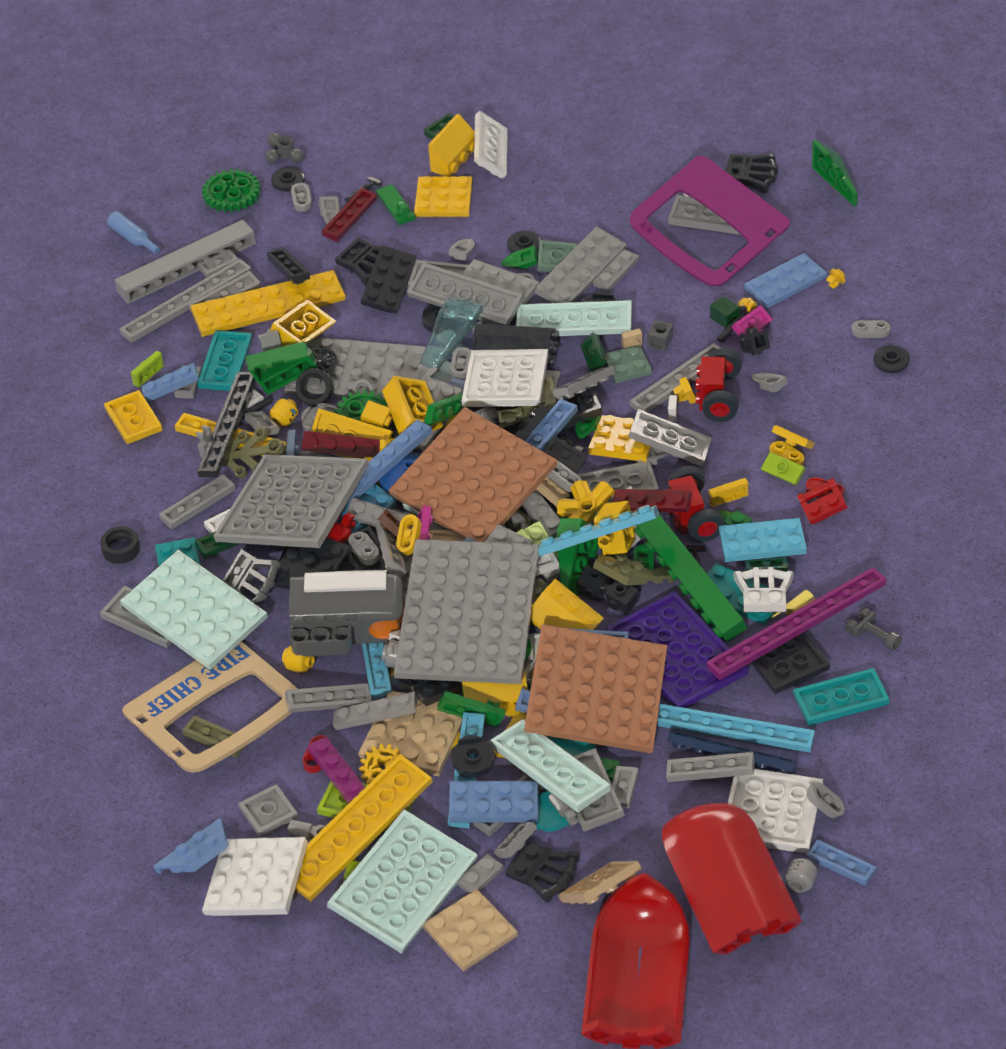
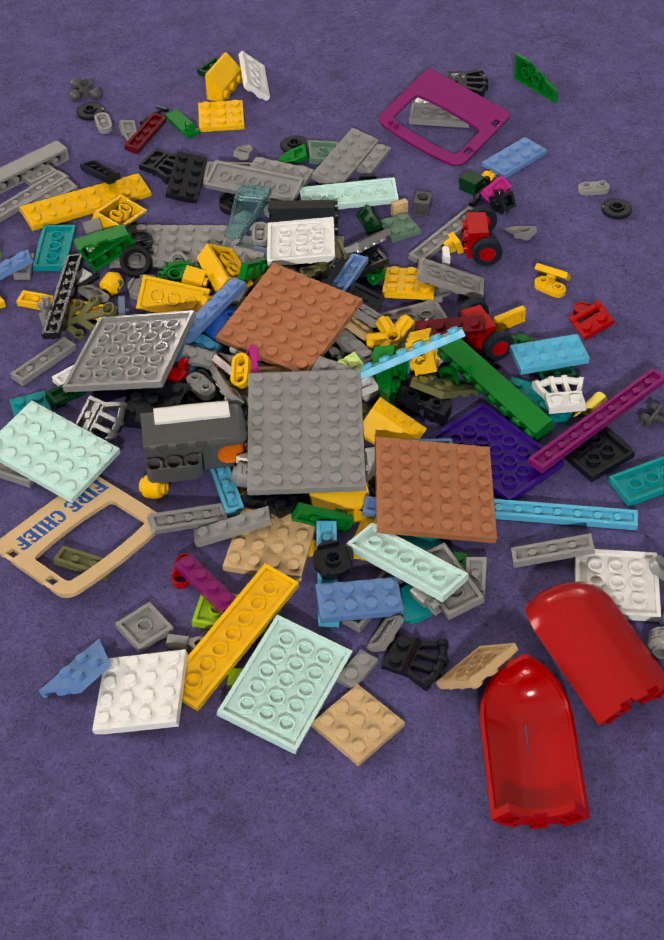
camera: 10 degrees left, 0 degrees up
(231, 190) = (44, 121): green gear -> none
(340, 444) = (162, 304): dark red plate -> none
(370, 771) = (240, 582): yellow gear -> none
(702, 745) = (538, 532): dark blue plate -> none
(783, 468) = (550, 297): lime plate -> none
(835, 277) = (555, 152): yellow plate -> none

